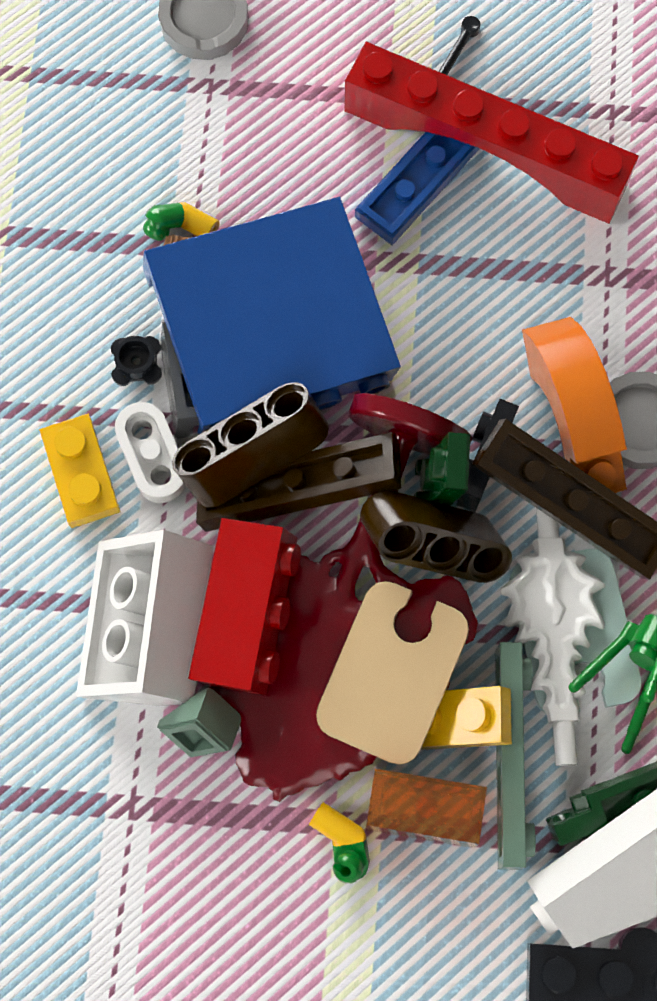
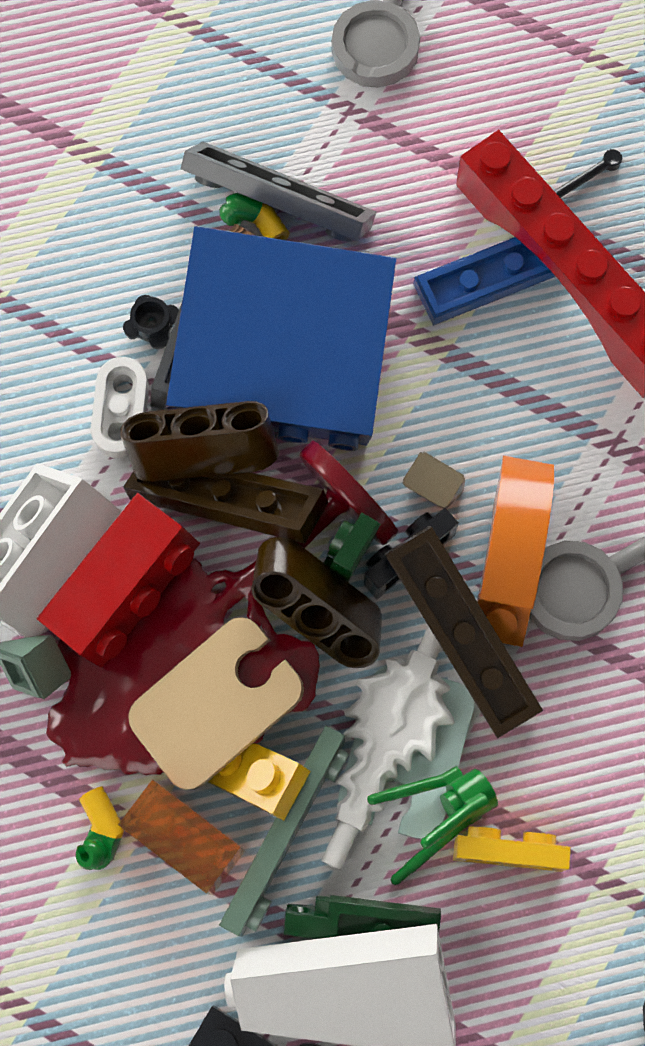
camera: 30 degrees right, 0 degrees up
(79, 470) = (53, 394): yellow plate -> none
(123, 191) = (220, 168): none -> dark grey plate
(475, 379) = (434, 480): none -> dark tan slope

